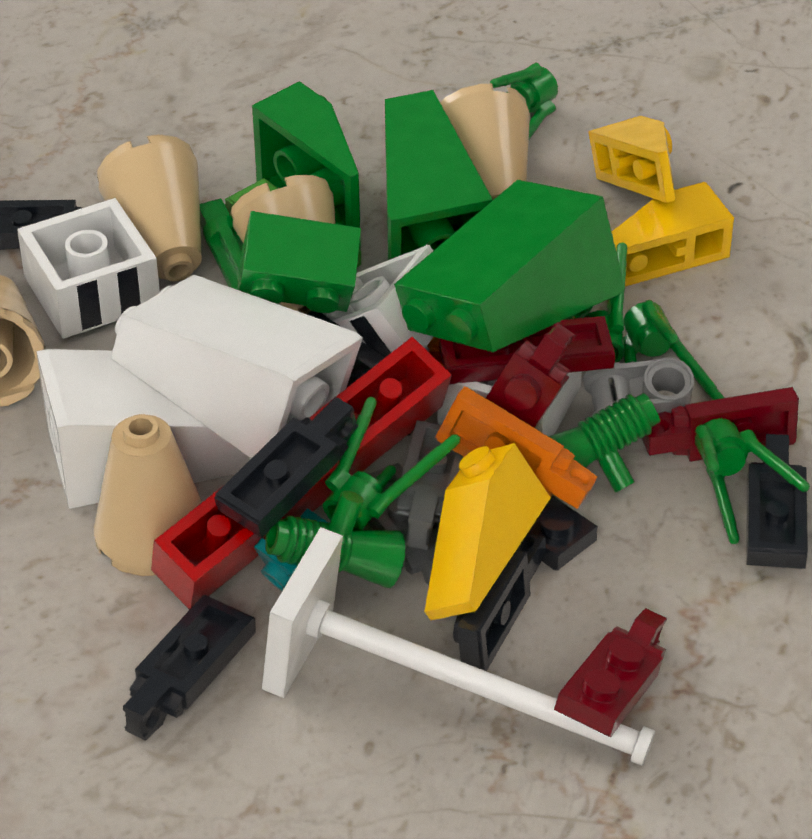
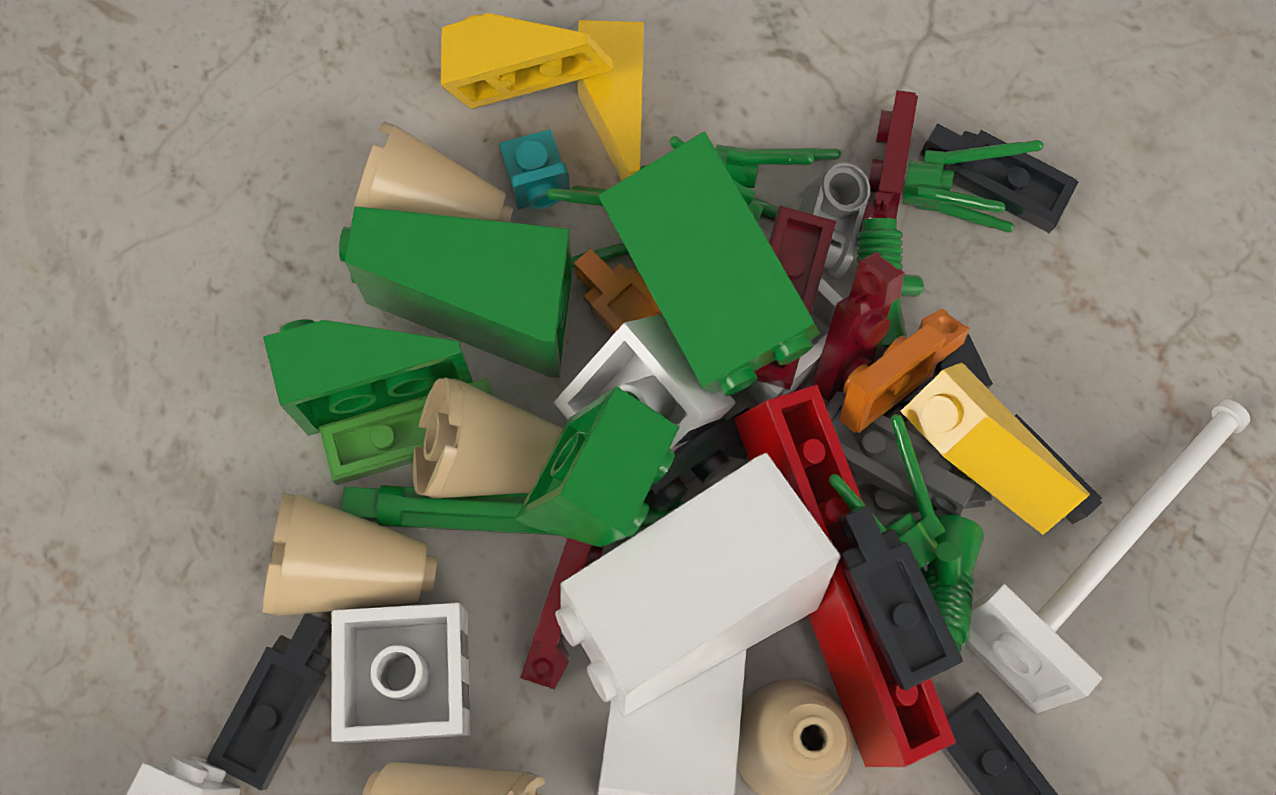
camera: 70 degrees left, 30 degrees up
(538, 89) = (326, 111): green plant -> none
(615, 675) = (1164, 403): dark red hinge -> none

